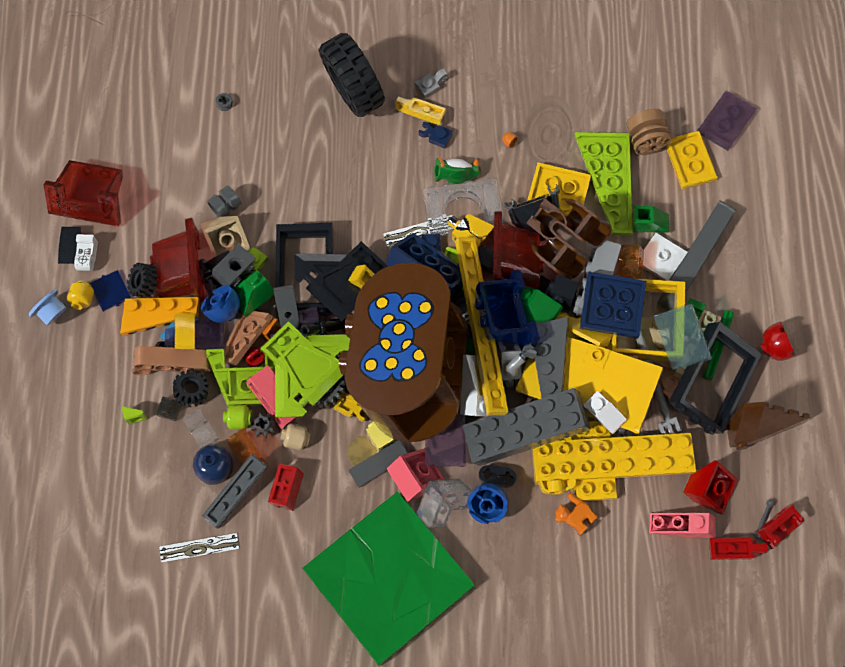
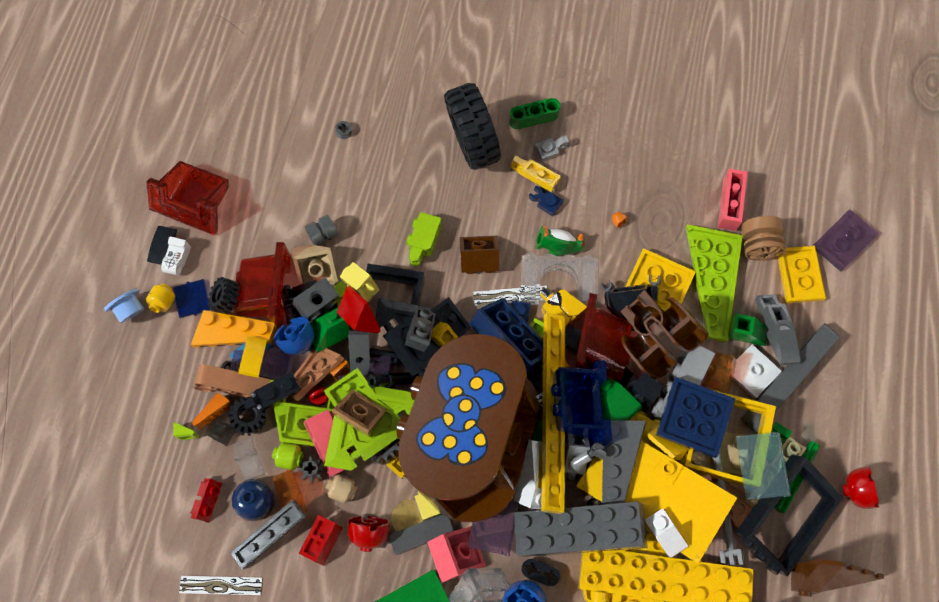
camera: 10 degrees right, 0 degrees up
(157, 387) = (215, 407): none -> orange slope
(169, 464) = (209, 492): none -> red hinge
(212, 360) = (273, 392): none -> black hinge
(273, 242) = (359, 281): none -> light yellow brick
(278, 268) = (357, 312): none -> red slope
(298, 361) = (359, 412): none -> medium nougat slope
(324, 190) = (423, 238): none -> lime hinge
(329, 471) = (368, 532): none -> red cylinder
(341, 275) = (420, 329): none -> dark grey slope
(382, 196) = (479, 254): none -> reddish brown slope
(400, 51) = (540, 107): none -> green beam
(613, 101) = (732, 199): none -> coral brick
(679, 213) = (780, 329): none -> dark grey slope

